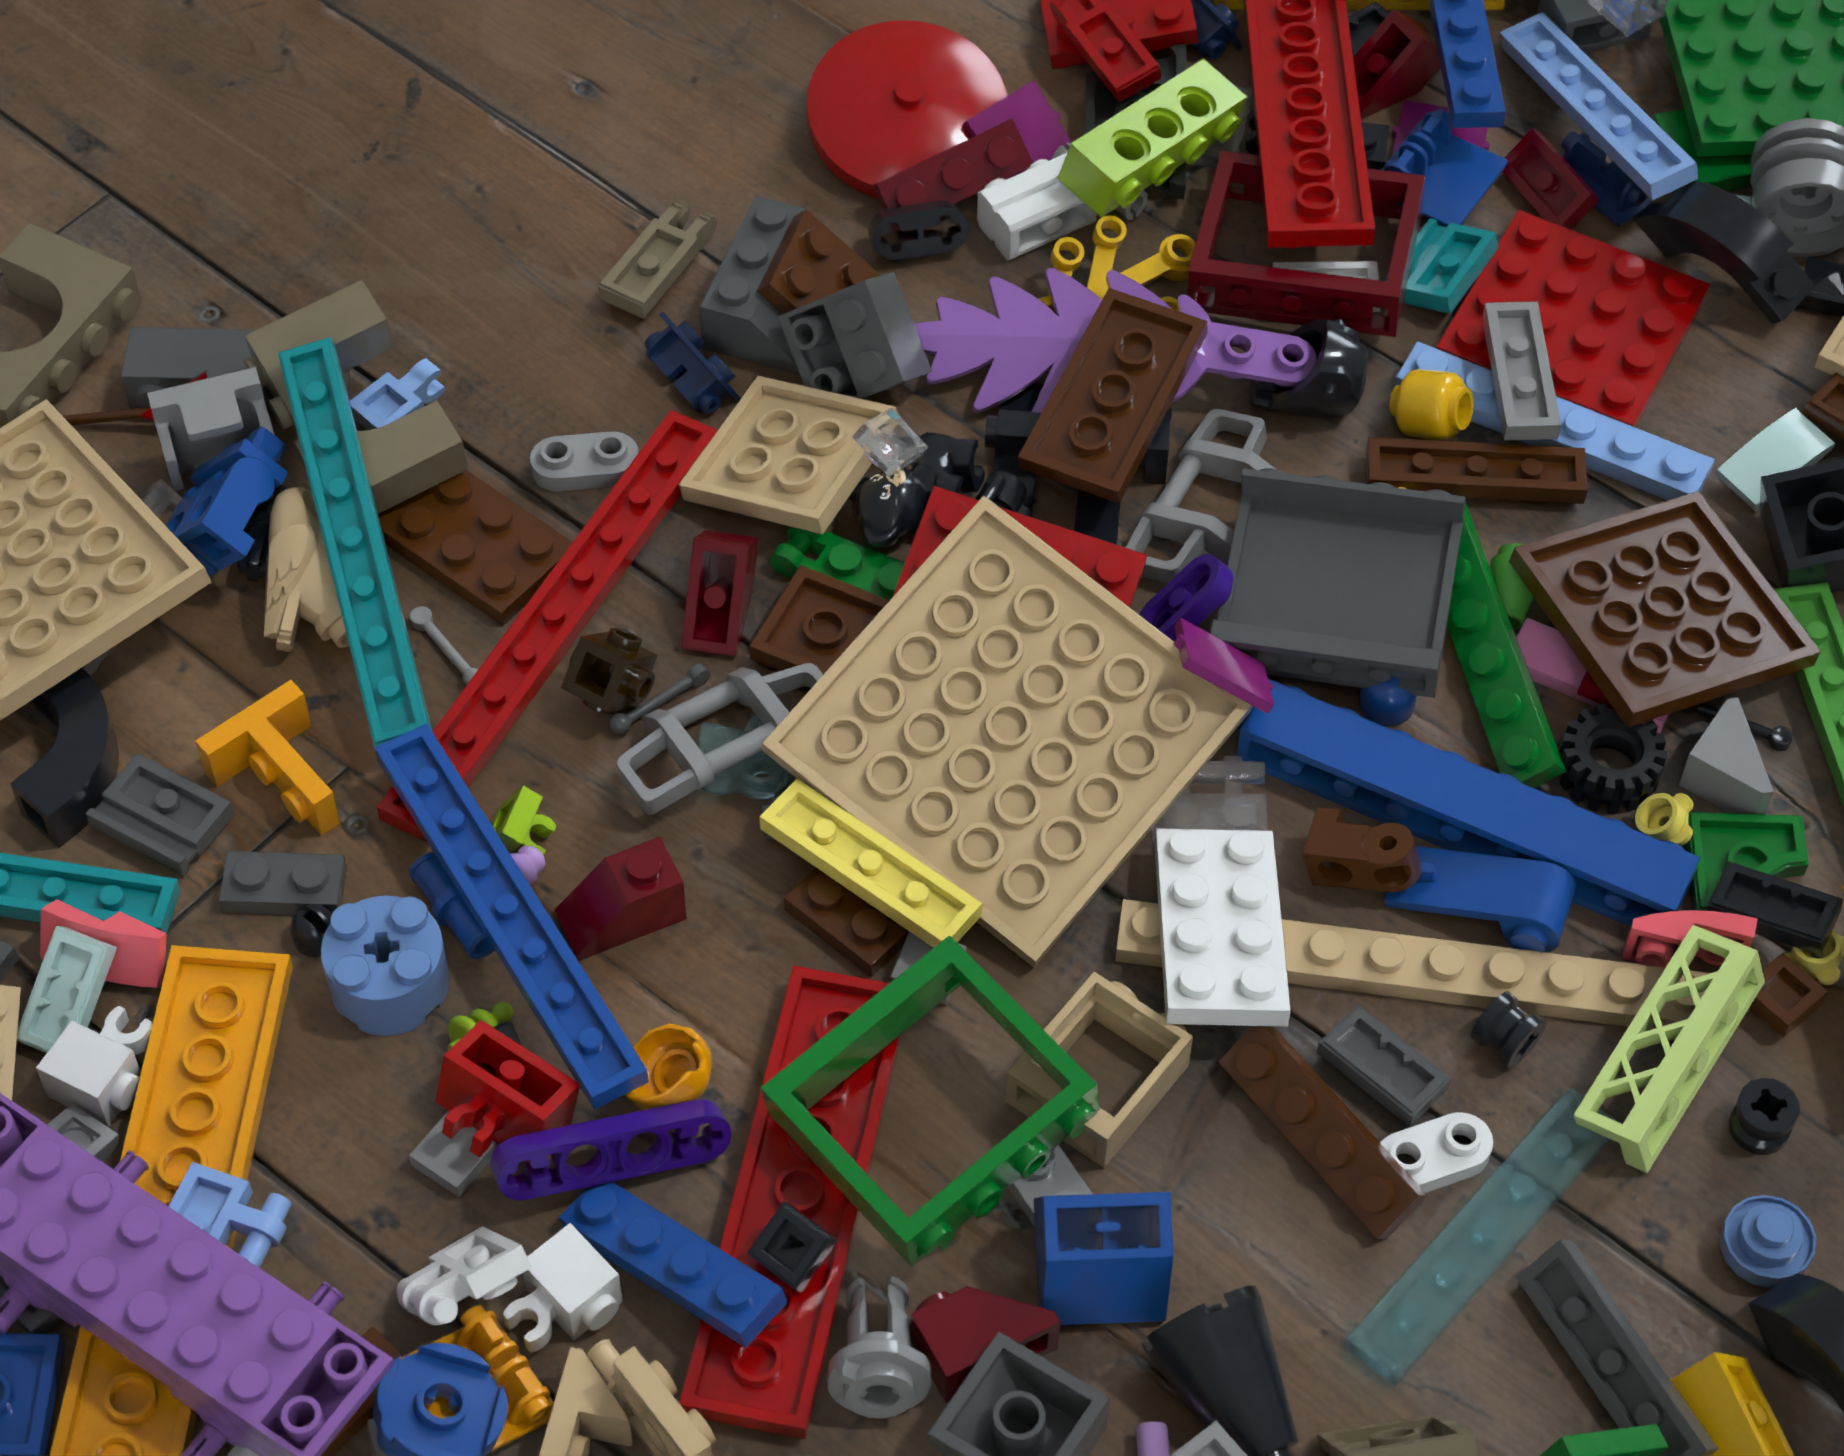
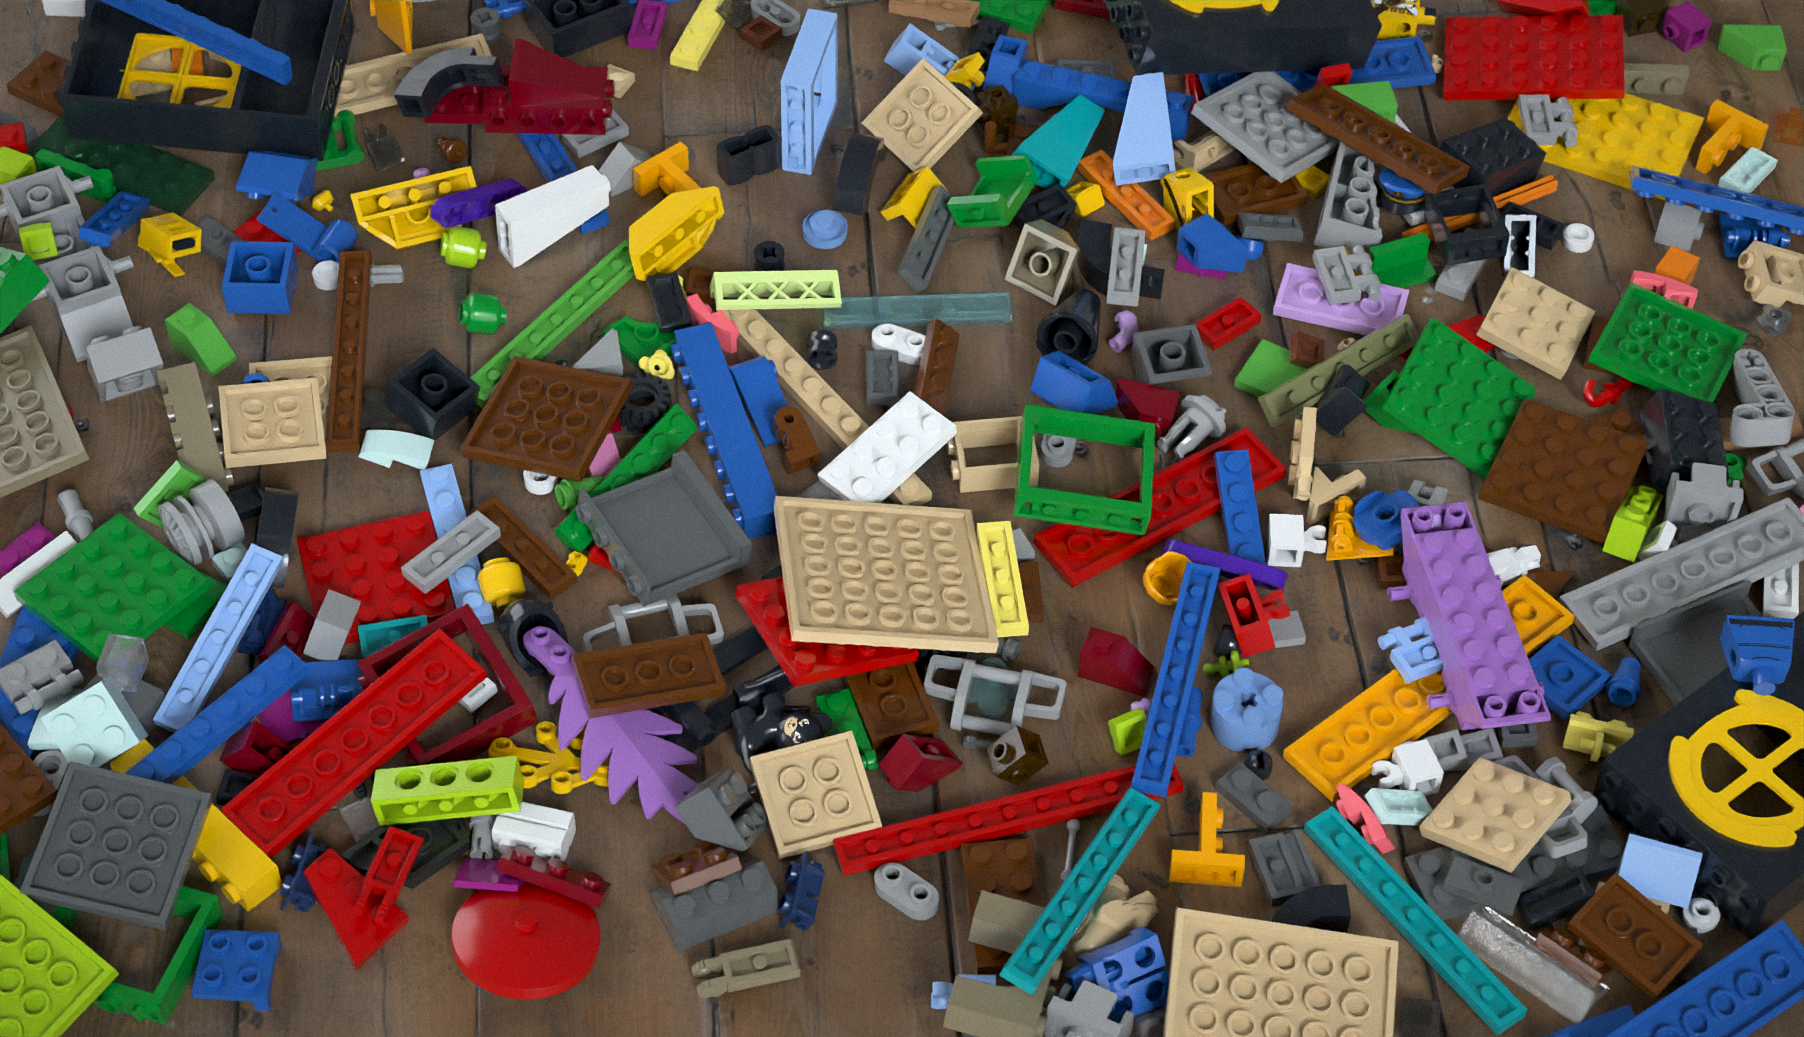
camera: 135 degrees left, 5 degrees down
(473, 1266) = (1321, 560): white plate -> none
(792, 1246) = (1191, 473): black tile -> none
(889, 442) = (780, 730): clear plate -> none
(916, 218) = (606, 867): black beam -> none
(1190, 595) = (729, 578): dark purple plate -> none
(1223, 665) = (768, 517): magenta piece -> none
(1517, 205) = (331, 626): none -> light grey slope

